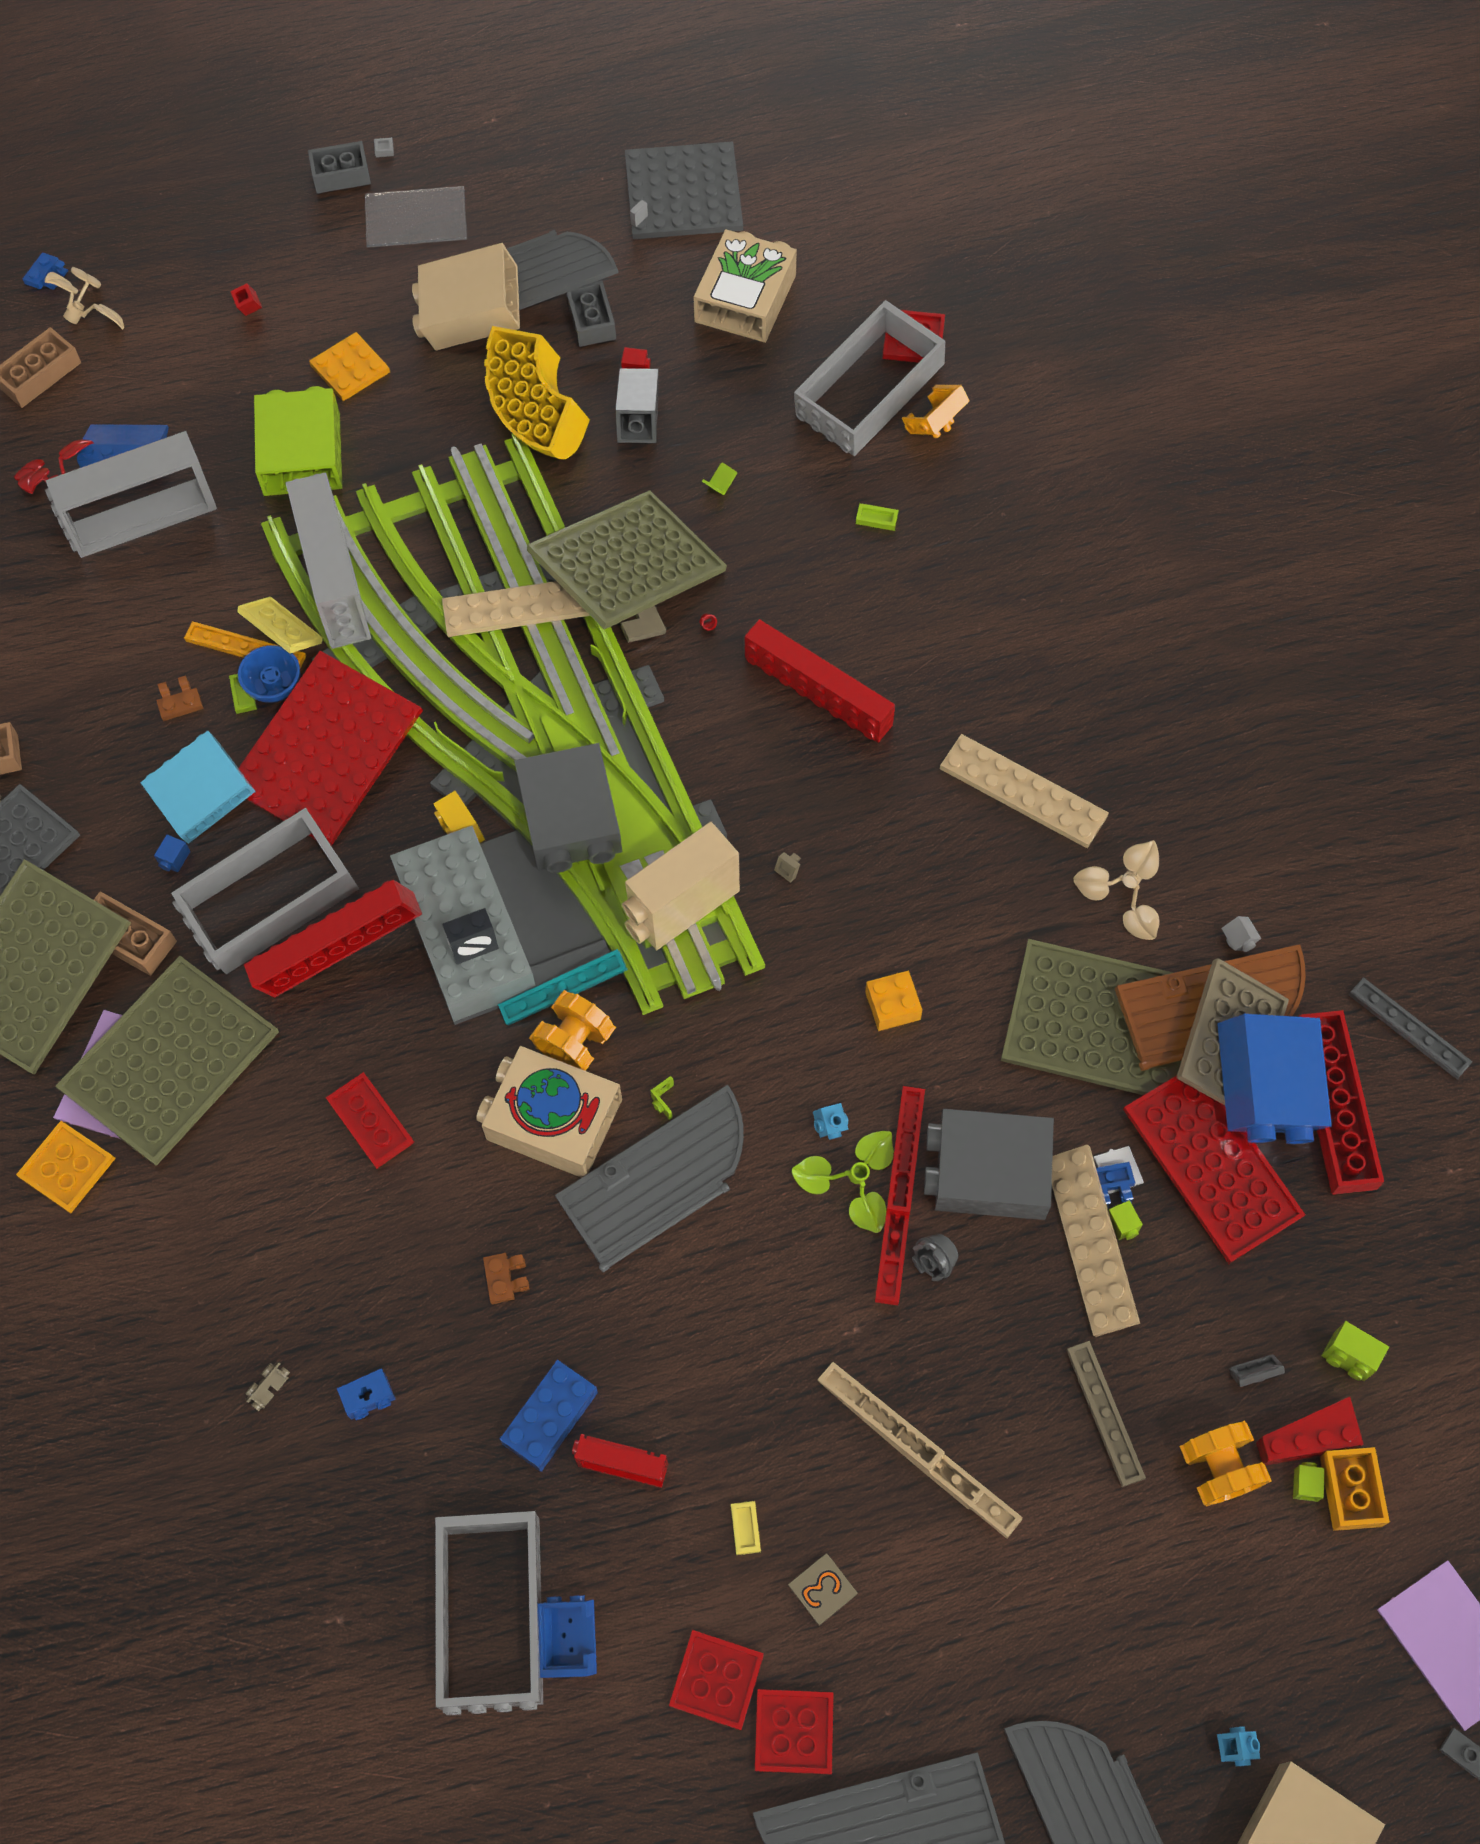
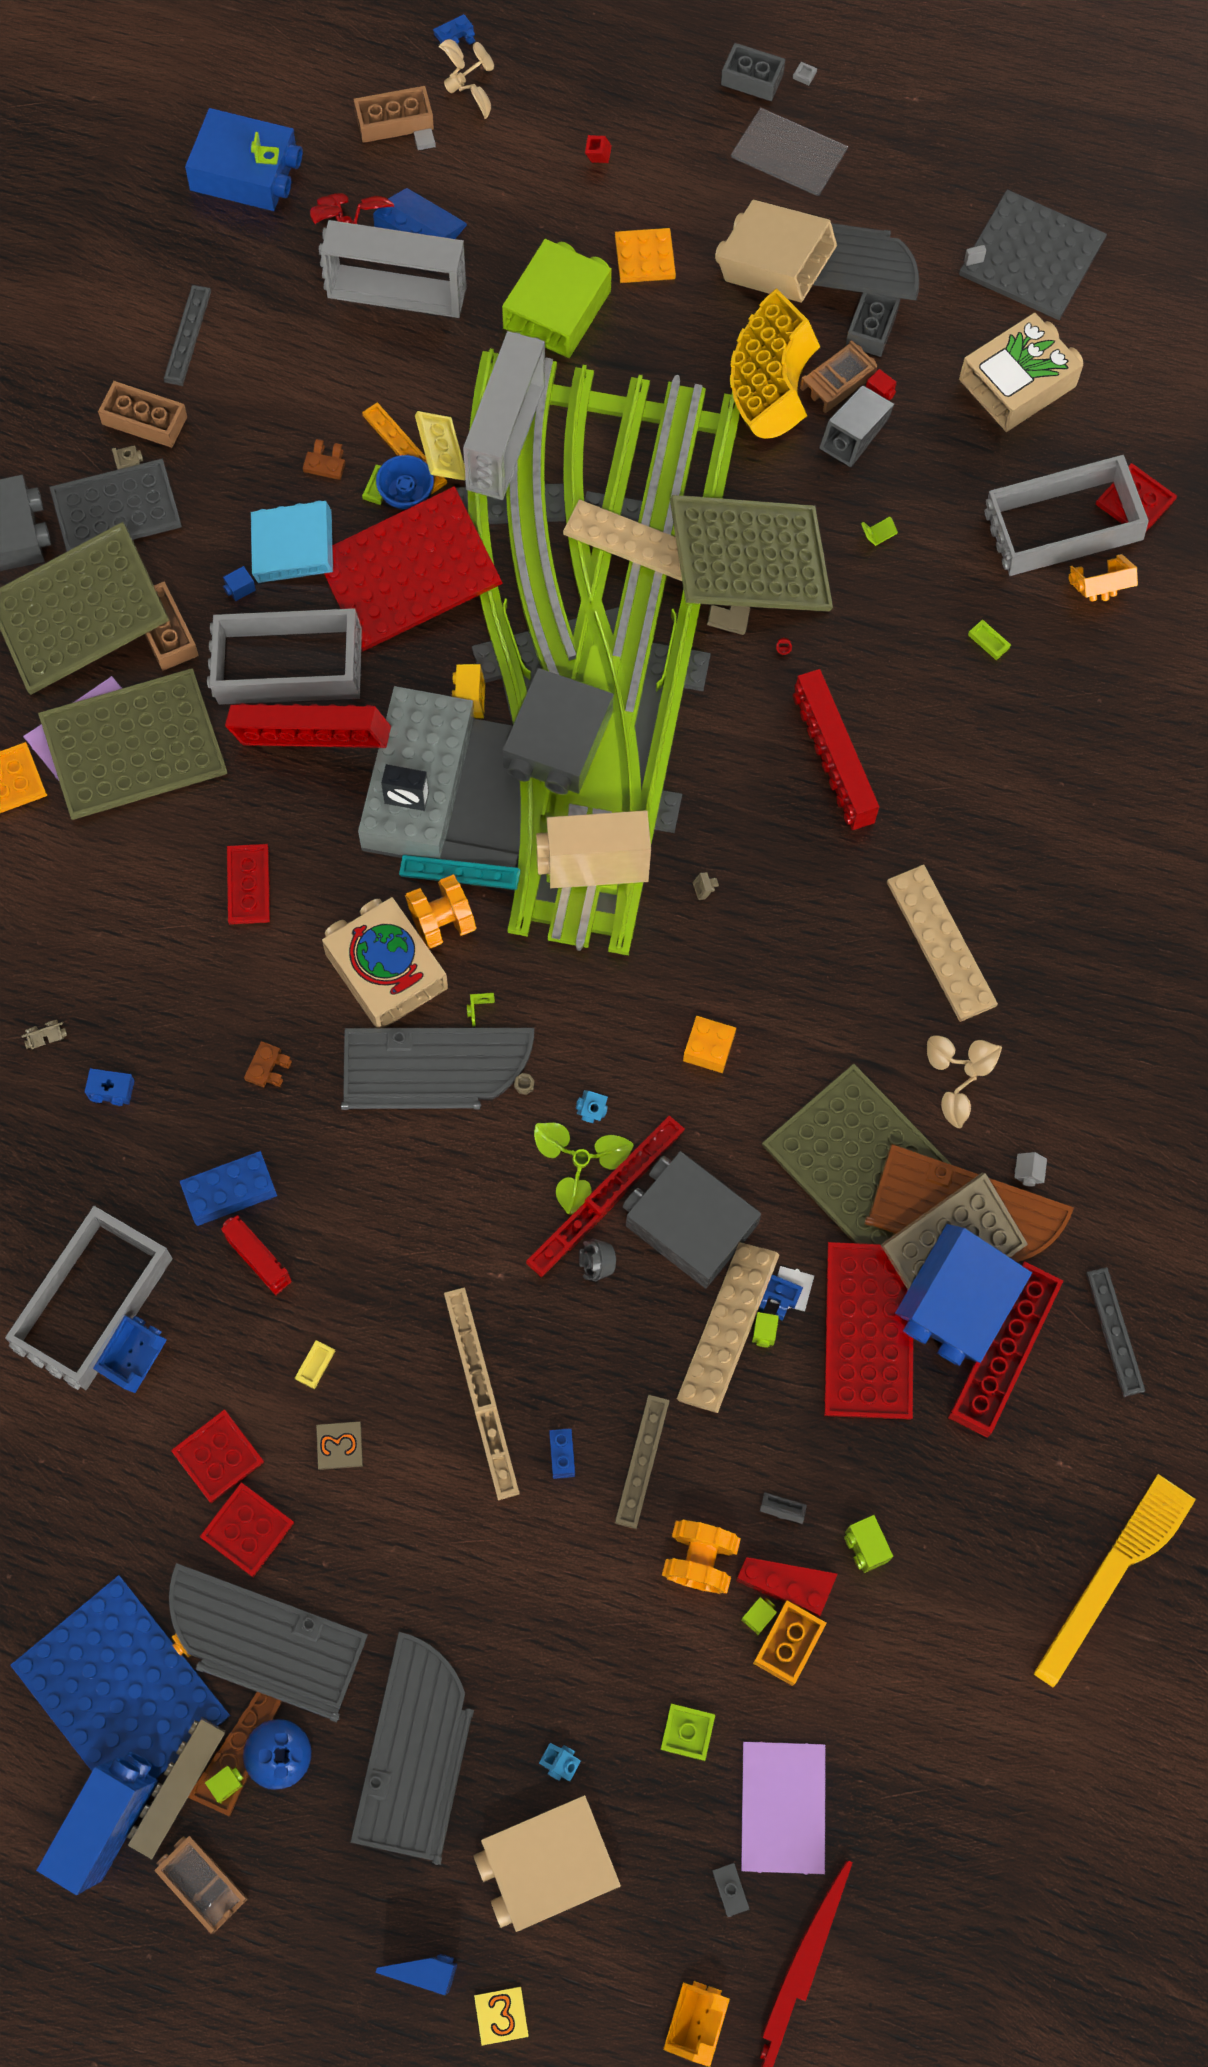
camera: 30 degrees right, 5 degrees up
(78, 375) = (424, 139): none -> light grey tile
(593, 371) = (840, 375): none -> medium nougat door
(754, 1140) = (524, 1083): none -> dark tan tile
(1031, 1455) = (562, 1453): none -> blue brick
(1326, 1635) = (688, 1732): none -> lime plate

